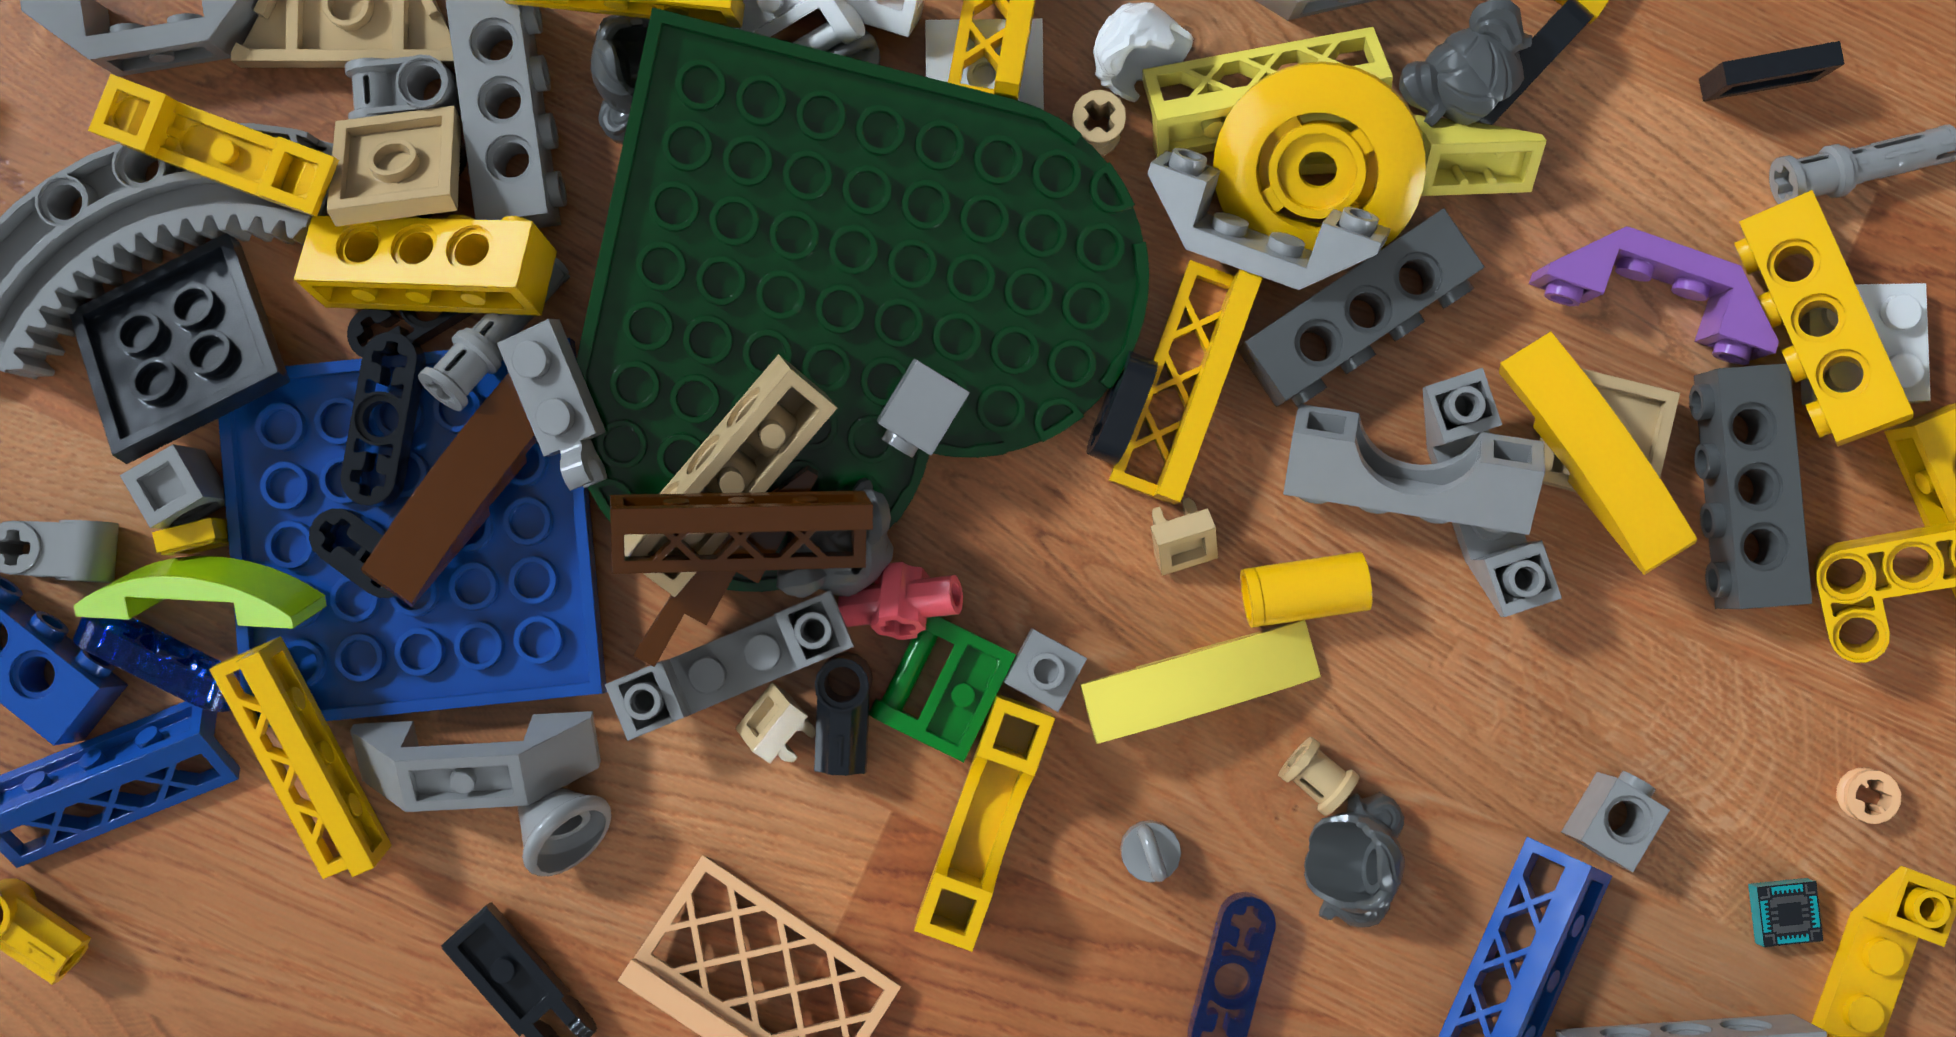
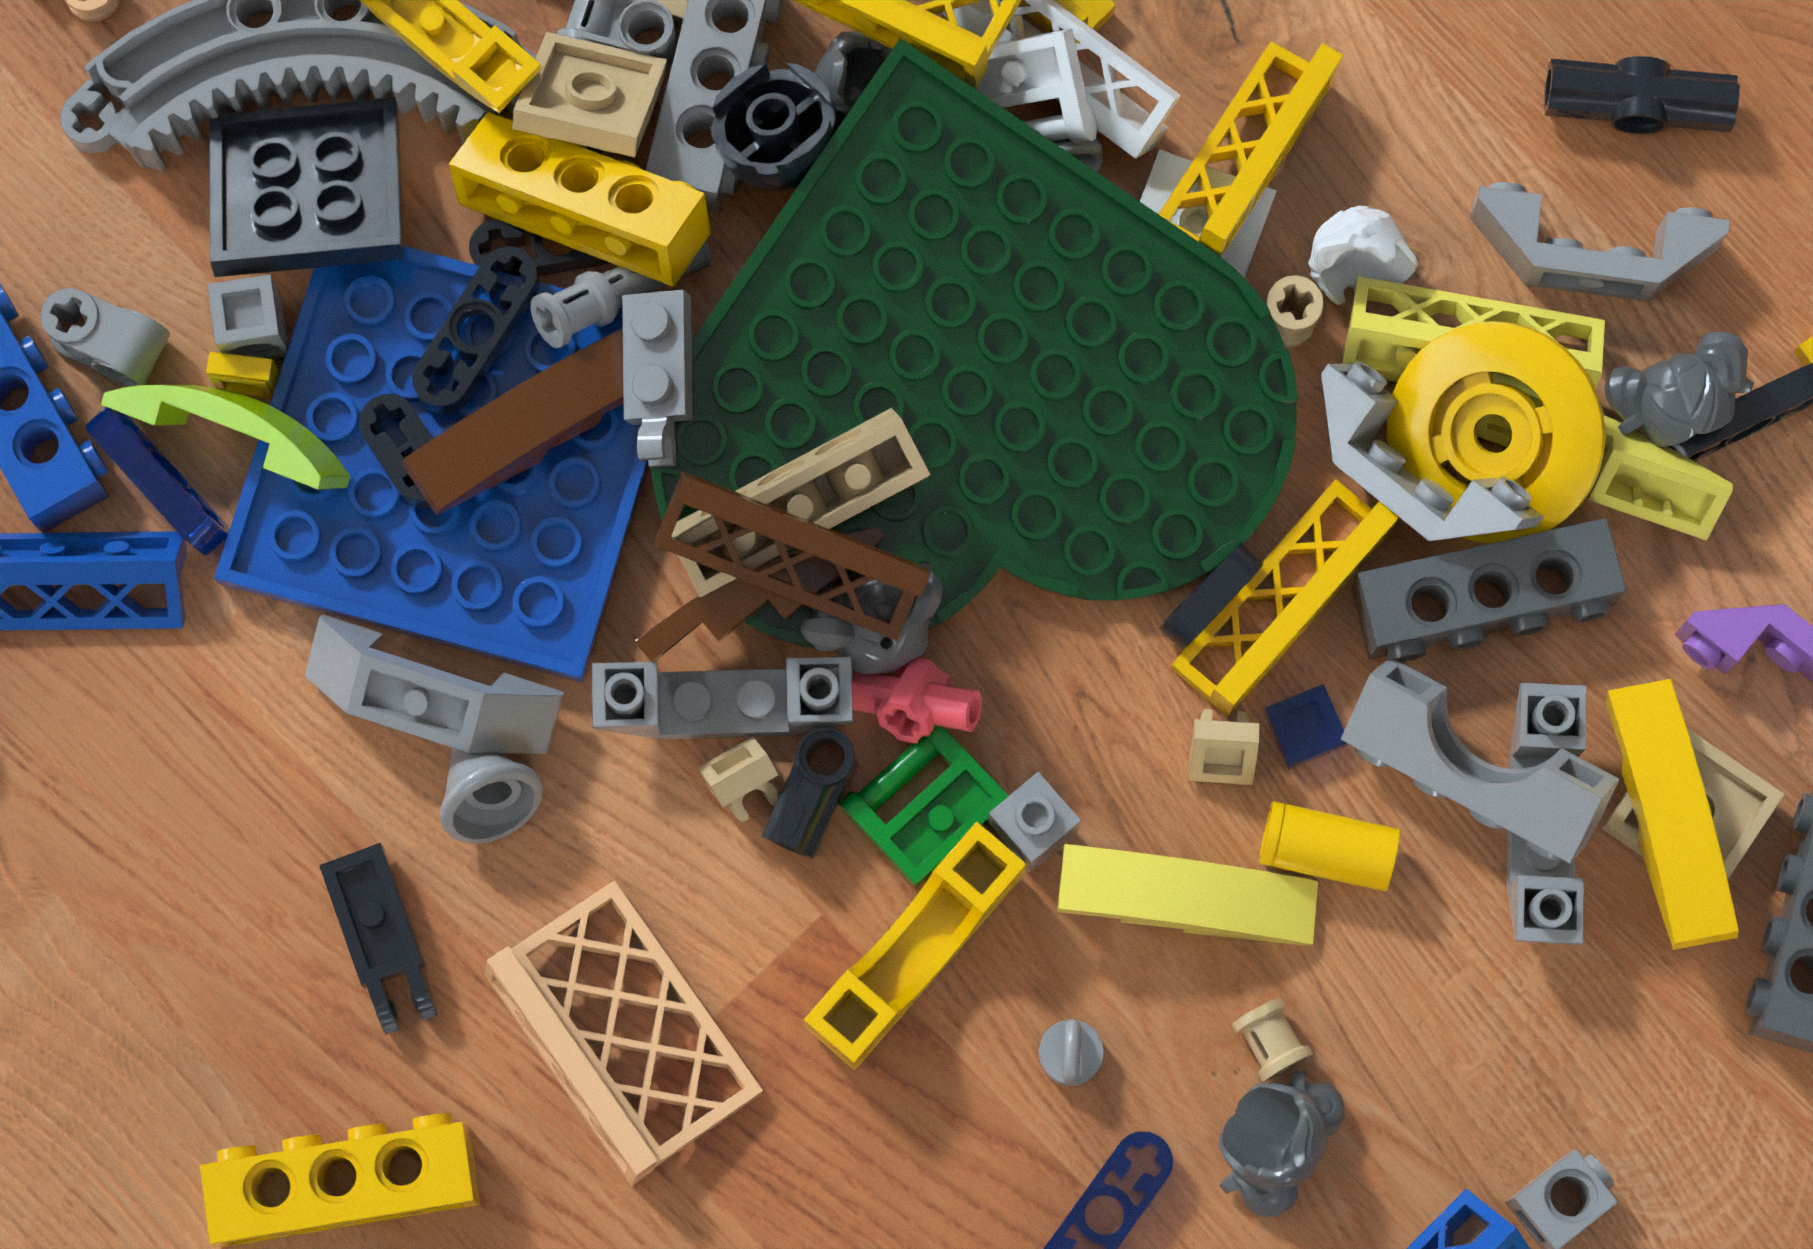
camera: 20 degrees right, 10 degrees down
(311, 755) = (274, 627): yellow fence -> none
(570, 131) = (773, 125): none -> black cylinder
(920, 410) = (1009, 514): light grey brick -> none
(1244, 489) = (1305, 726): none -> clear blue tile

